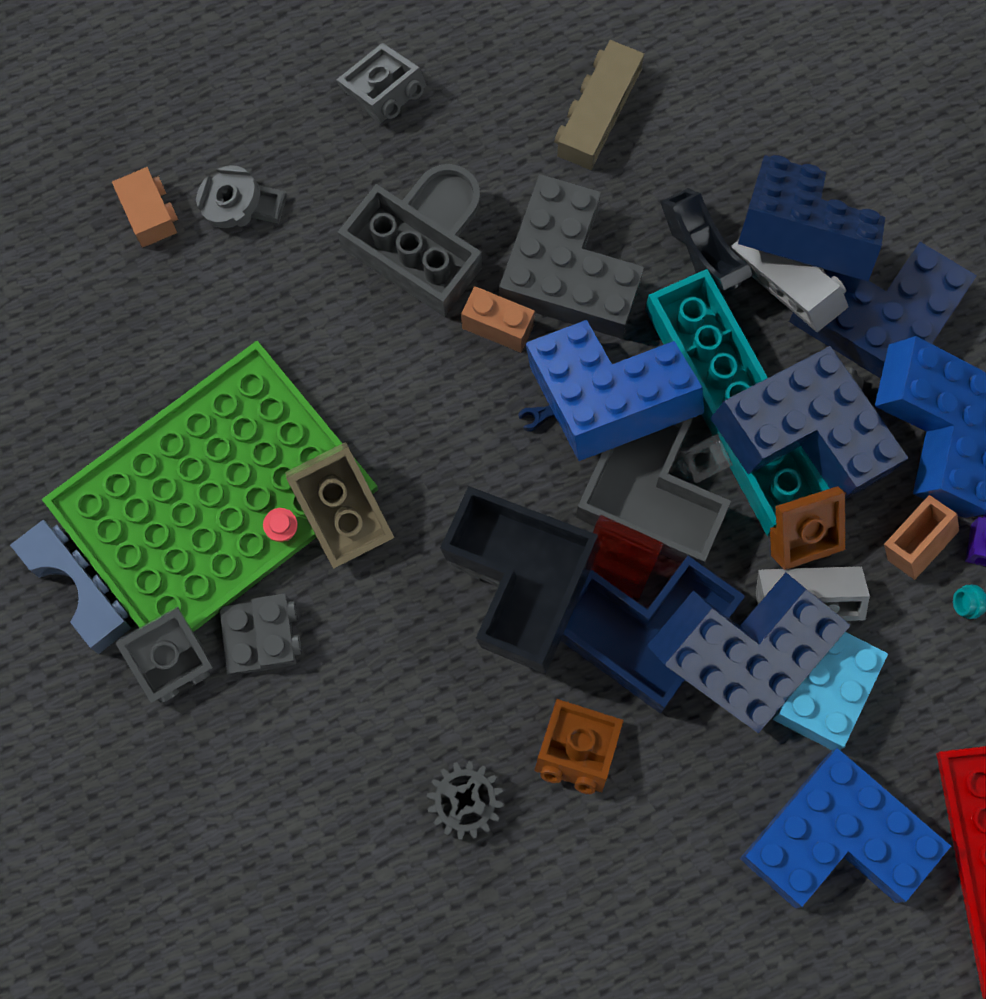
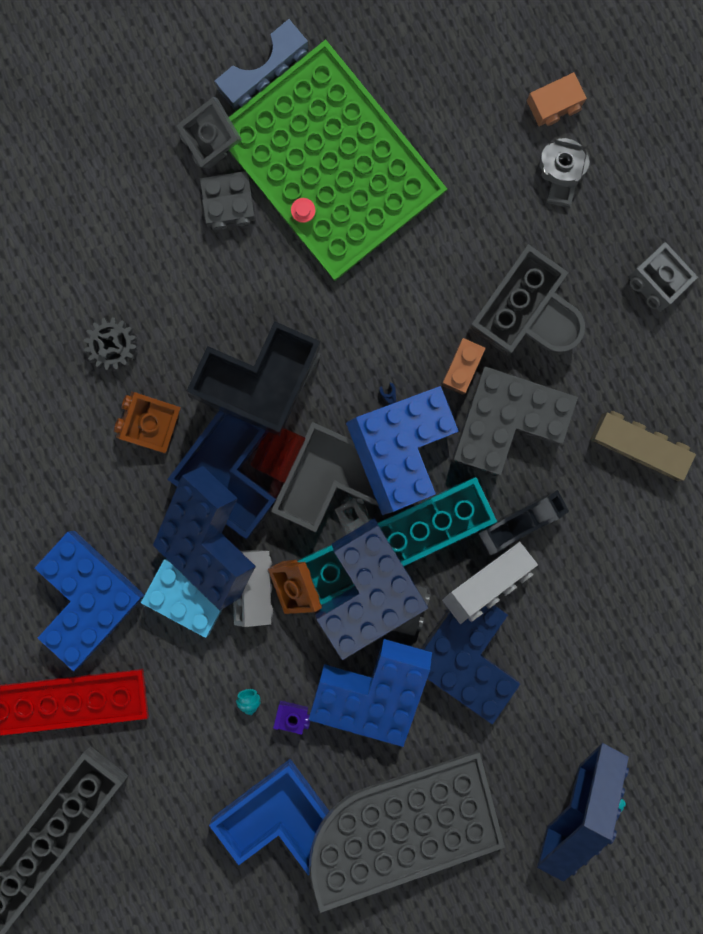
camera: 85 degrees right, 15 degrees up
(339, 505) = (317, 250): dark tan slope -> none
(795, 223) = (525, 592): dark blue piece -> none
(922, 537) = (292, 668): nougat brick -> none

